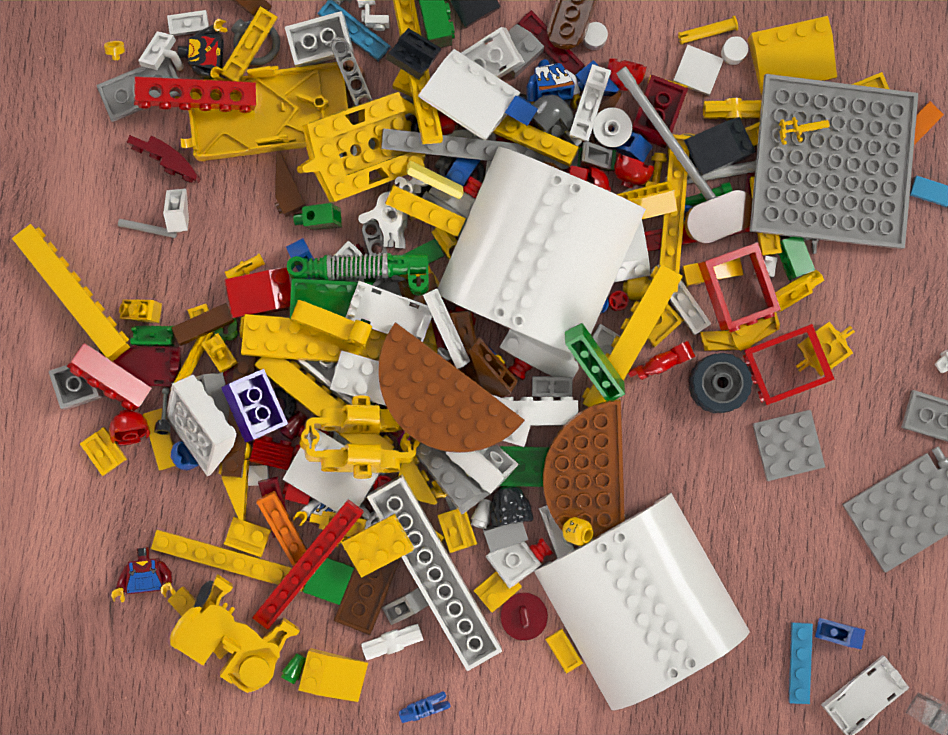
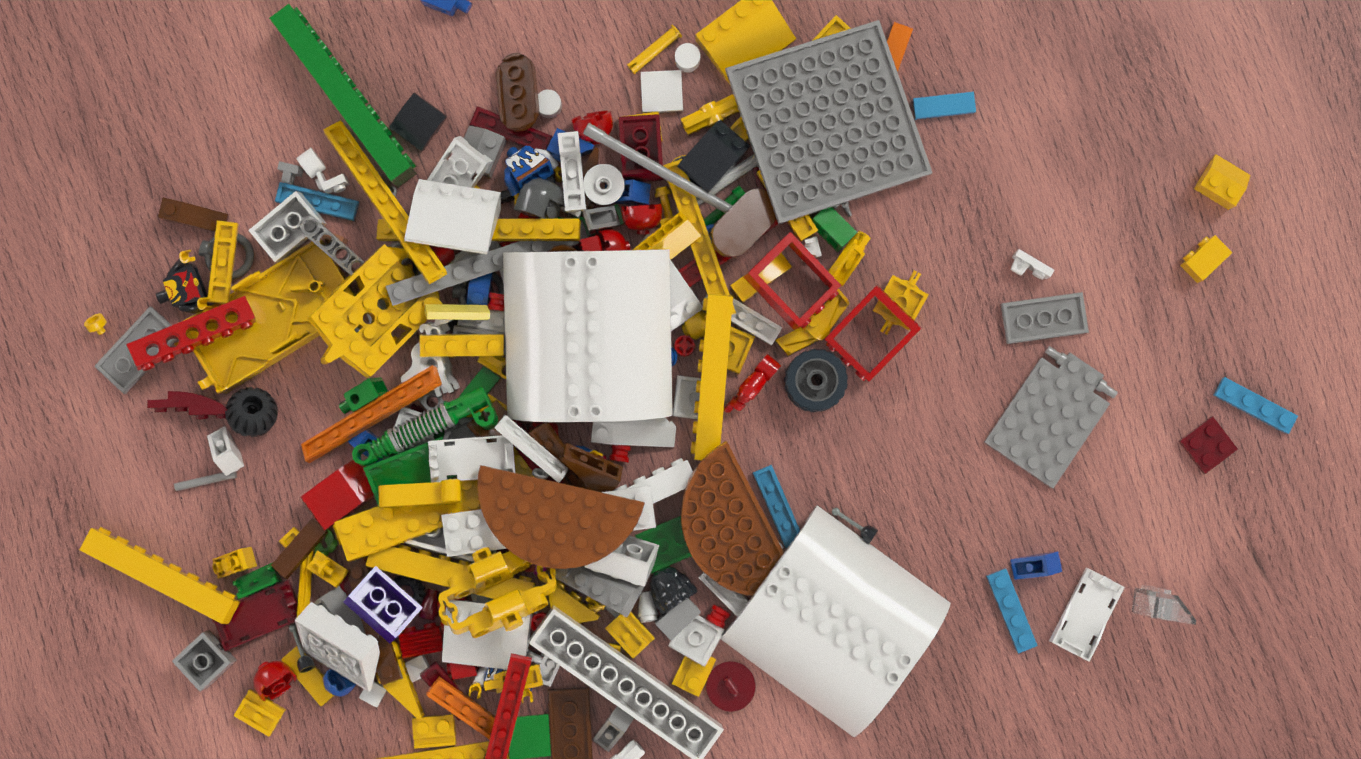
camera: 15 degrees left, 0 degrees up
(109, 377) = (232, 641): brick -> none
(158, 50) = (138, 307): white plate -> none
(187, 23) = (154, 267): white plate -> none
(209, 482) = (375, 695): none -> white tile
(214, 186) = (255, 402): none -> black wheel
(245, 267) = (315, 475): yellow pin -> none
(286, 191) = (322, 385): reddish brown slope -> none
(319, 235) = (371, 414): none -> orange tile
(378, 545) = (560, 684): yellow plate -> none
(413, 53) = (382, 201): black slope -> none
(521, 110) = (508, 208): blue slope -> none
(551, 386) = (658, 456): light grey hinge -> none
(564, 651) = (783, 701): yellow tile -> none
(577, 531) = (743, 584): yellow head -> none
(594, 362) = (686, 417): green brick -> none
(636, 476) = (777, 504): none -> dark azure tile
(704, 536) = (867, 532): none -> hinge
(788, 445) = (907, 409): light grey plate -> none
(799, 129) = (782, 105): yellow piece -> none

